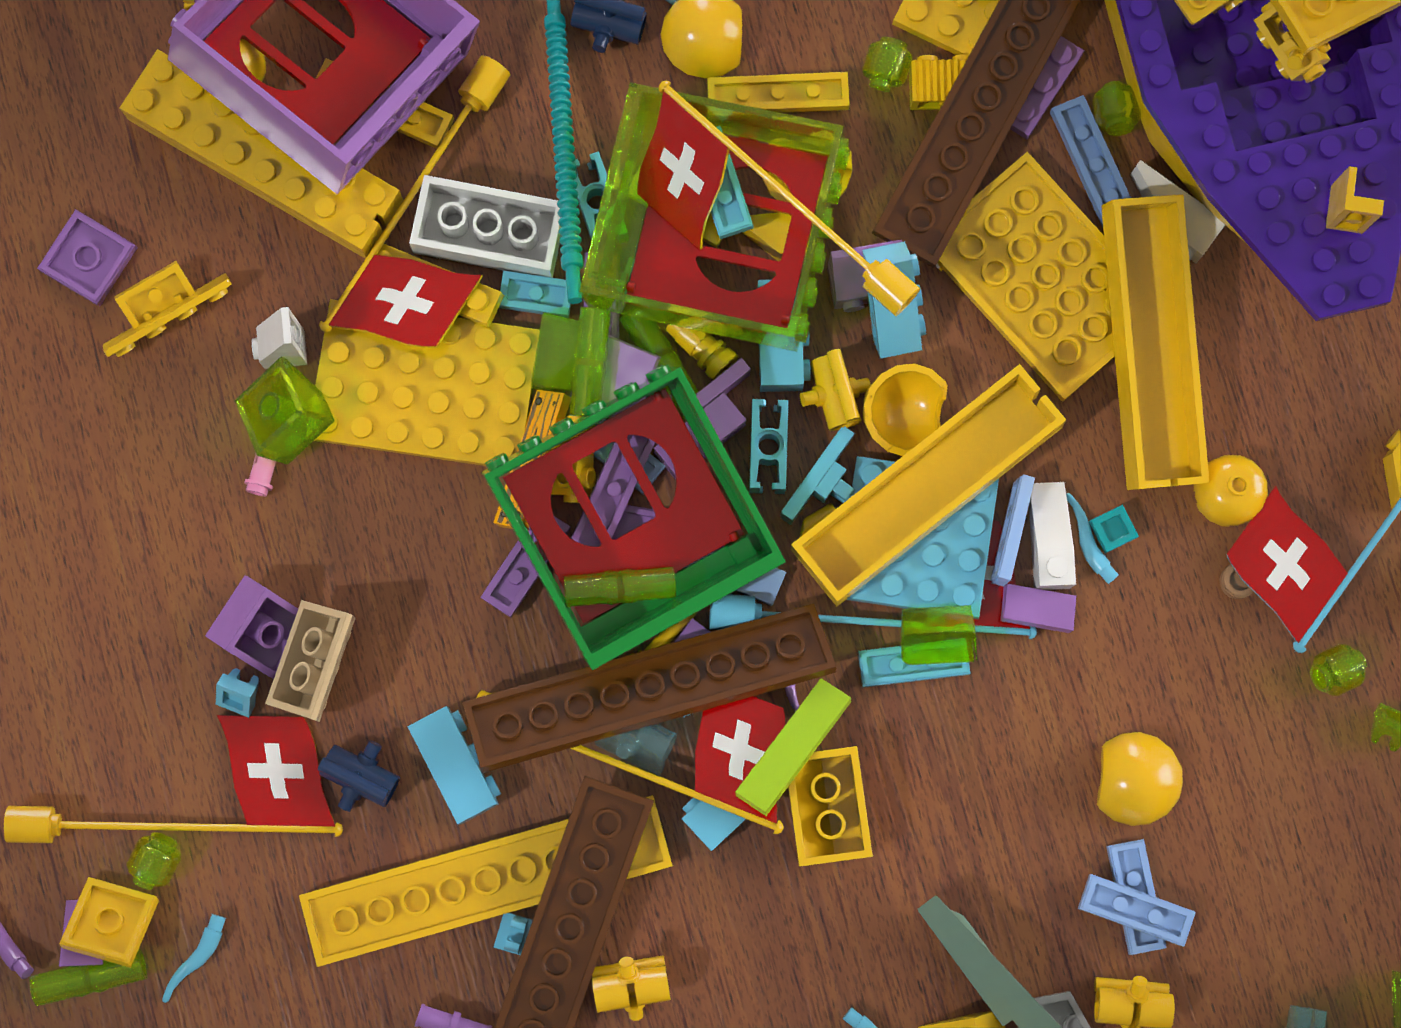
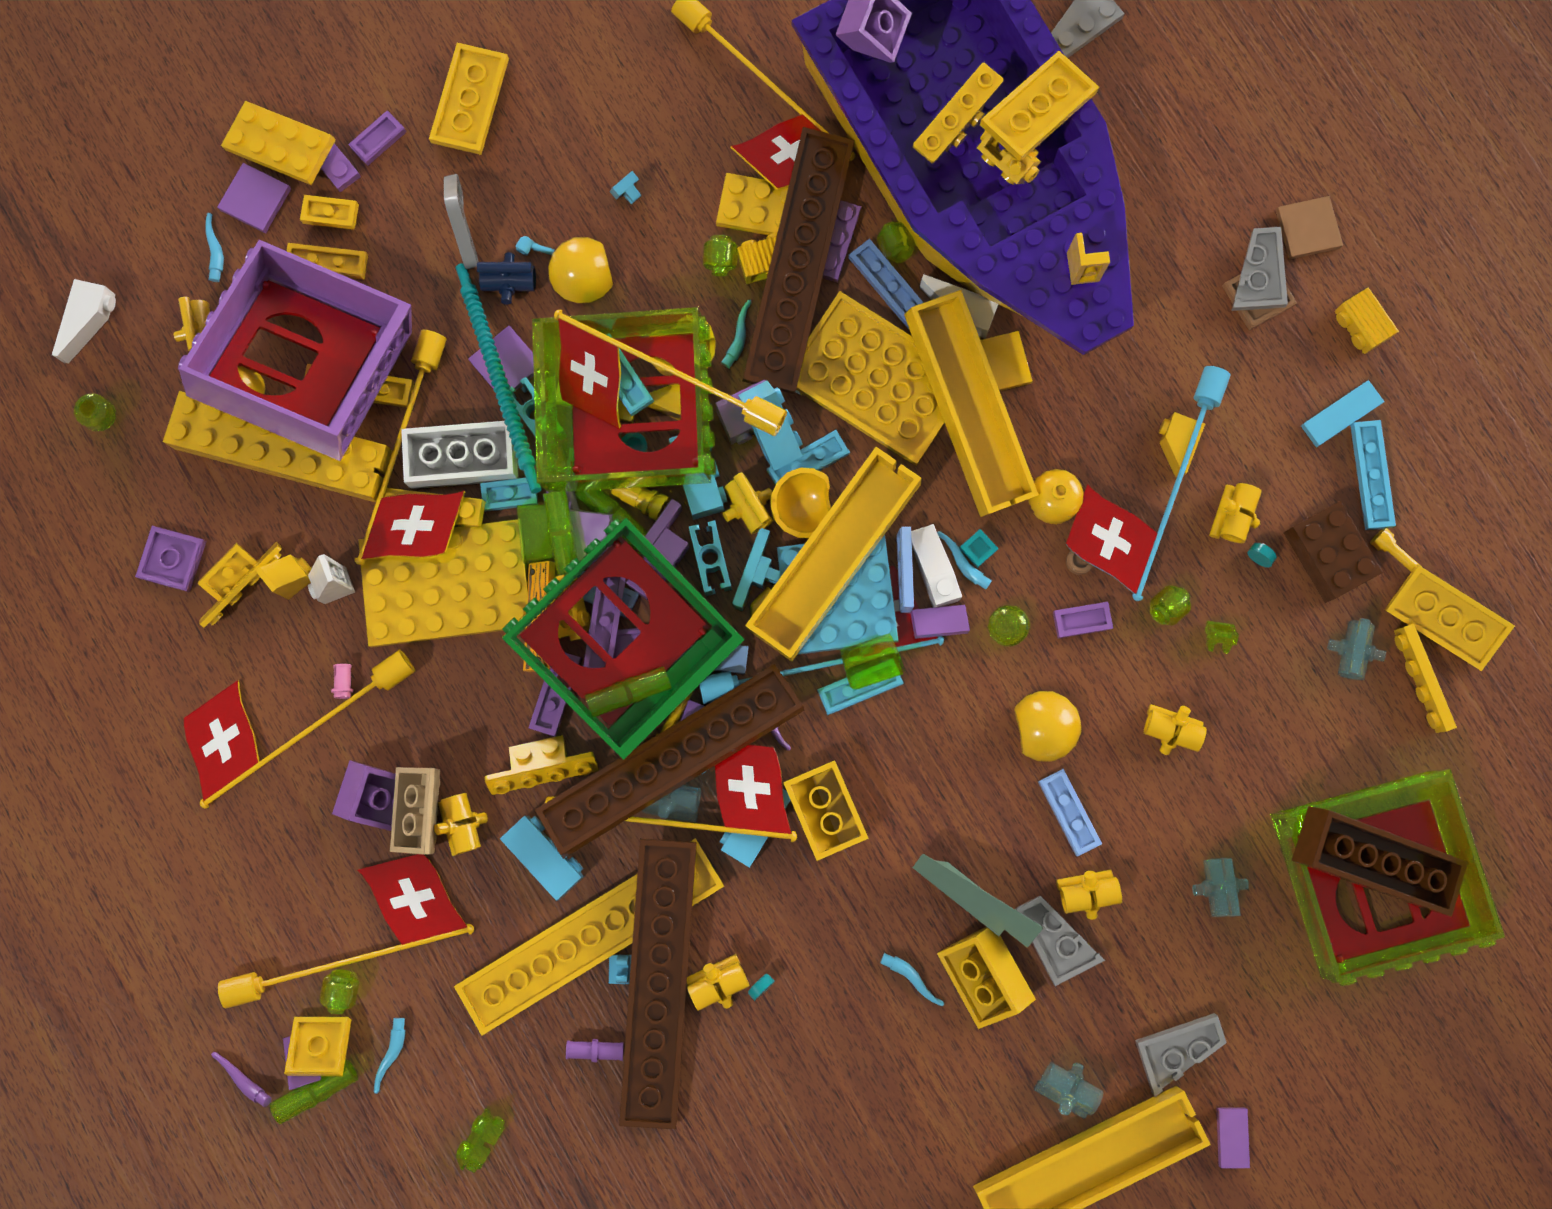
camera: 10 degrees left, 0 degrees up
(42, 46) = (94, 412): none -> clear neon green head
(94, 505) = (225, 741): none -> flag
(228, 320) = (286, 575): none -> yellow slope
(236, 694) = (367, 850): medium azure tile -> none
(283, 412) = (345, 632): clear neon green slope -> none
(359, 775) = (474, 884): dark blue pin -> none
(361, 693) = (459, 824): none -> yellow pin
(482, 646) = (538, 764): none -> yellow bracket
(591, 124) = (514, 356): none -> medium lavender tile
(684, 1005) = (761, 986): none -> teal tile
(714, 272) = (635, 441): none -> teal tile
(784, 91) = (651, 296): yellow plate -> none
(793, 747) = (788, 774): lime tile -> none
(877, 185) = (737, 345): none -> animal
(938, 353) = (816, 455): none -> medium azure tile
(1125, 638) = (1009, 625): none -> clear neon green hair
(1136, 910) = (1072, 822): light blue tile -> none
(1217, 299) = (1007, 360): none -> yellow tile
(1221, 657) = (1083, 620): none -> medium lavender tile
(1299, 828) = (1174, 729): none -> yellow pin

